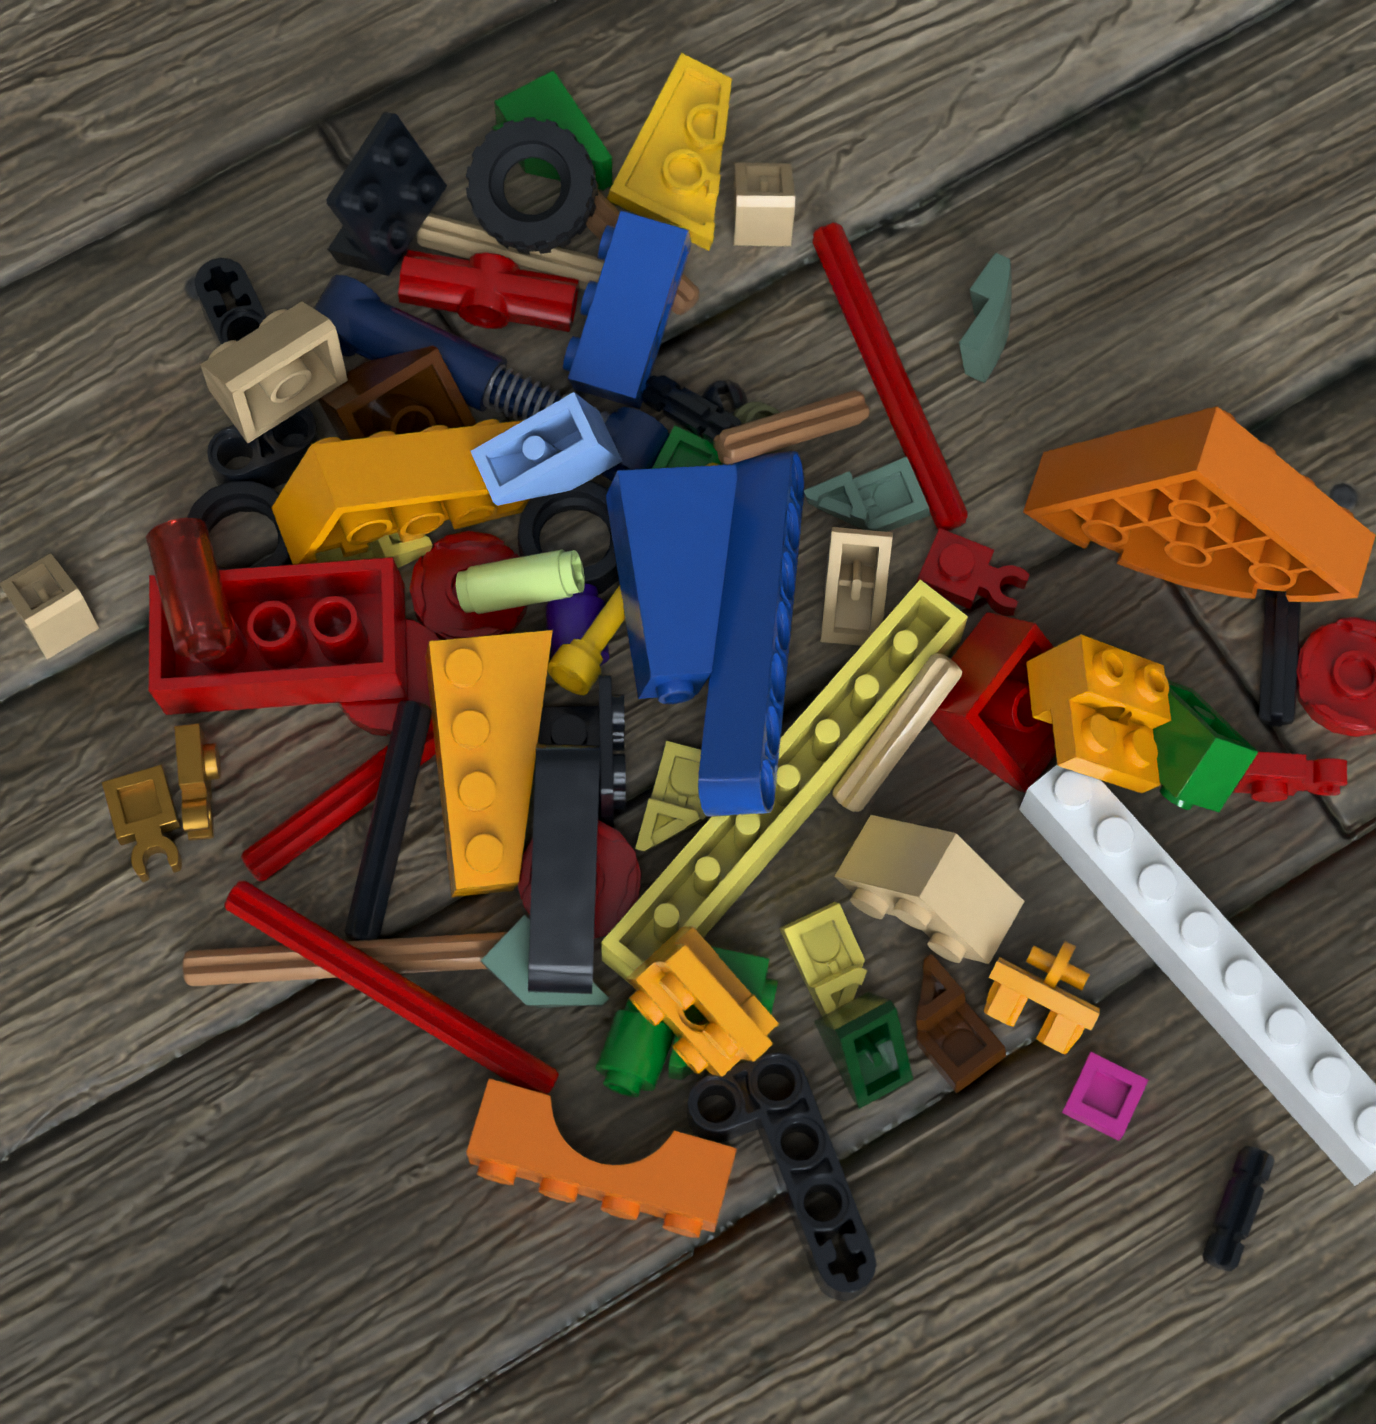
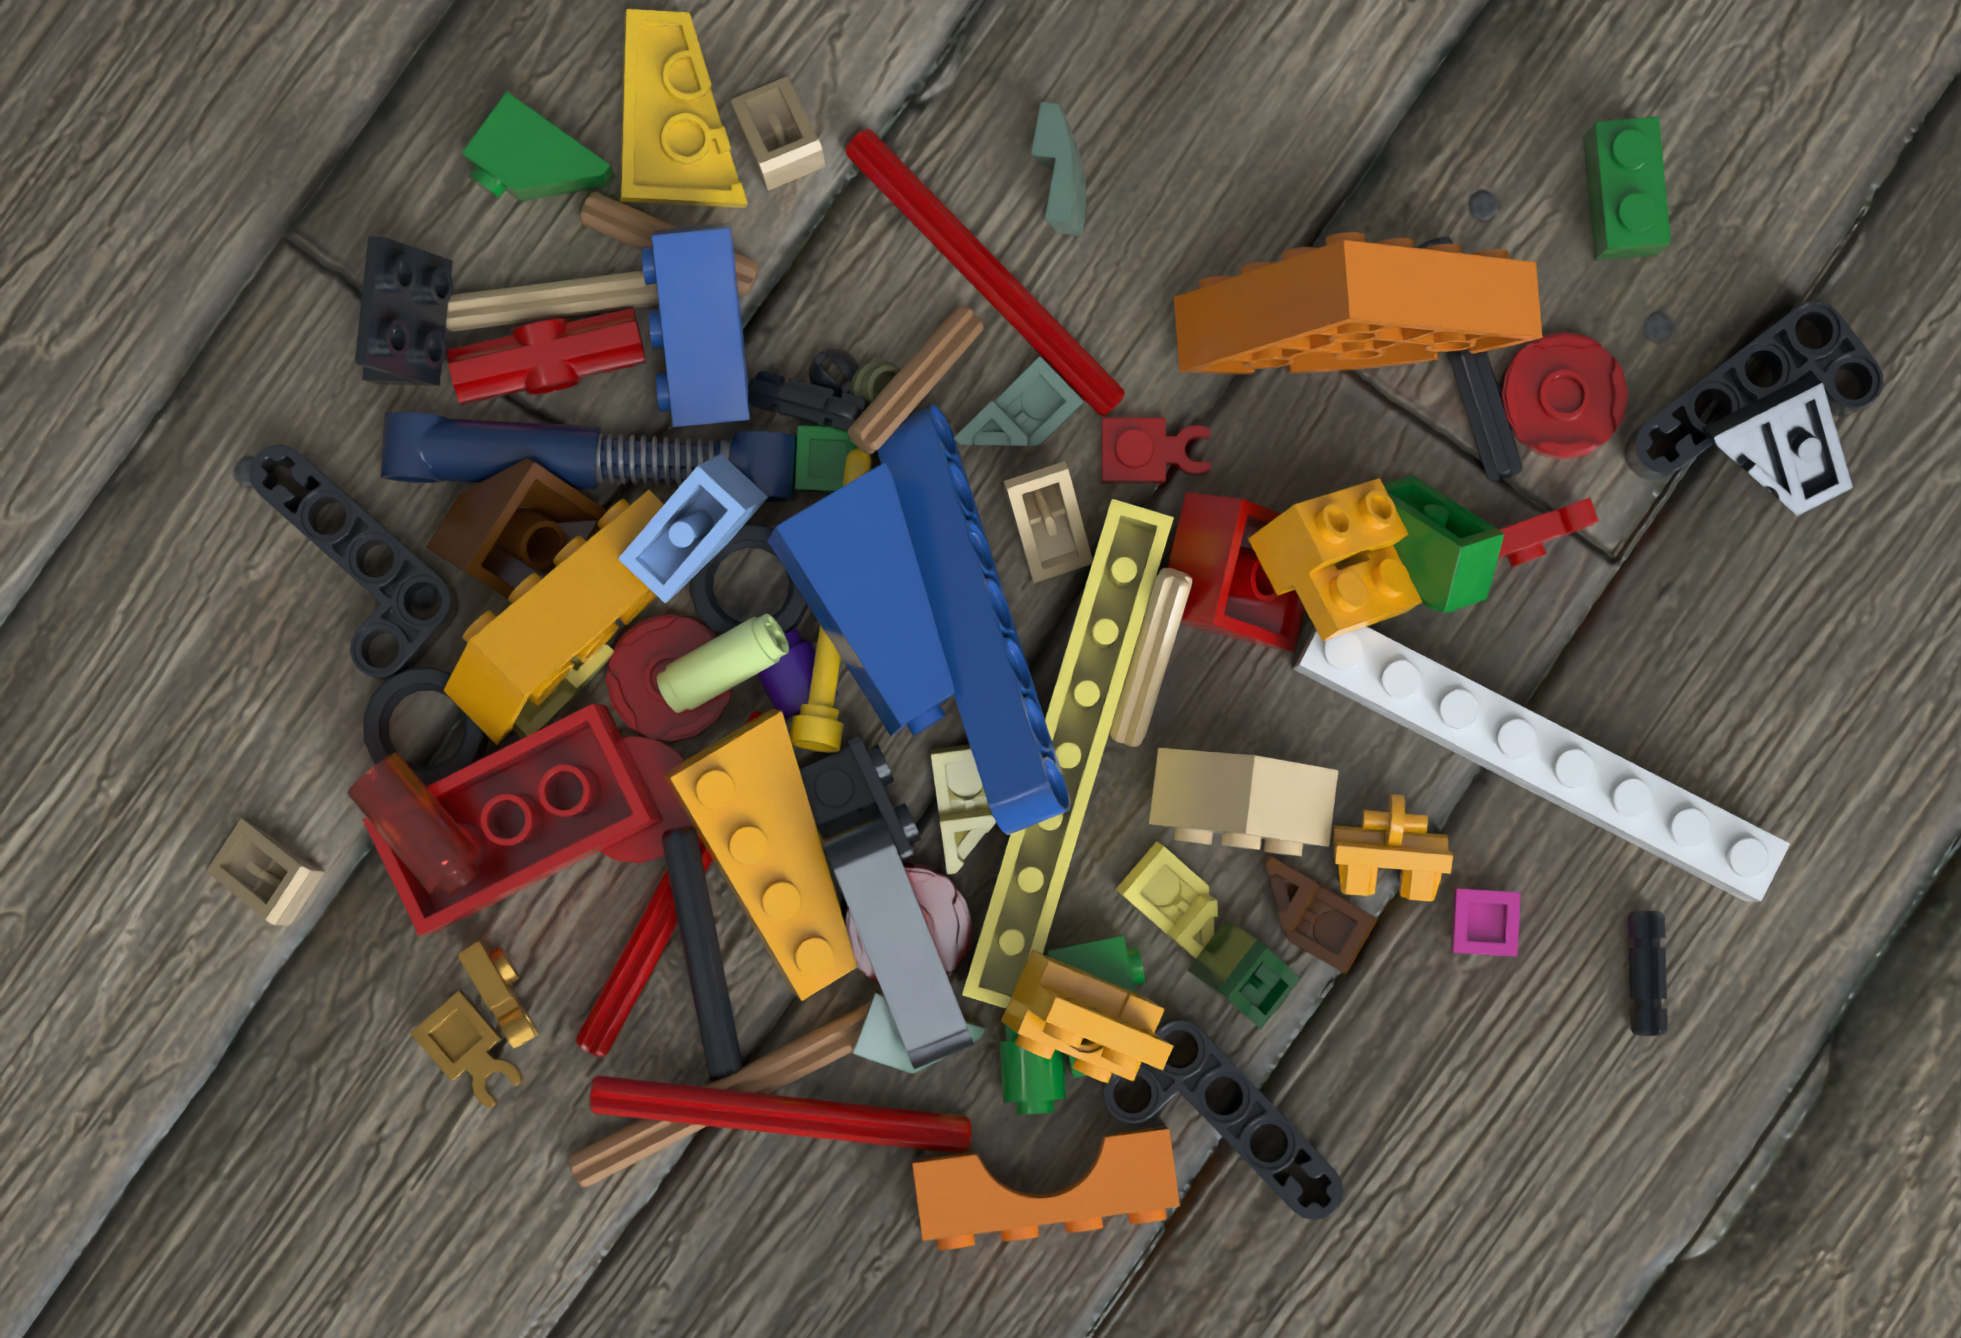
camera: 25 degrees left, 15 degrees up
(276, 369) = (381, 555): tan slope -> none
(525, 141) = (535, 284): black tyre -> none

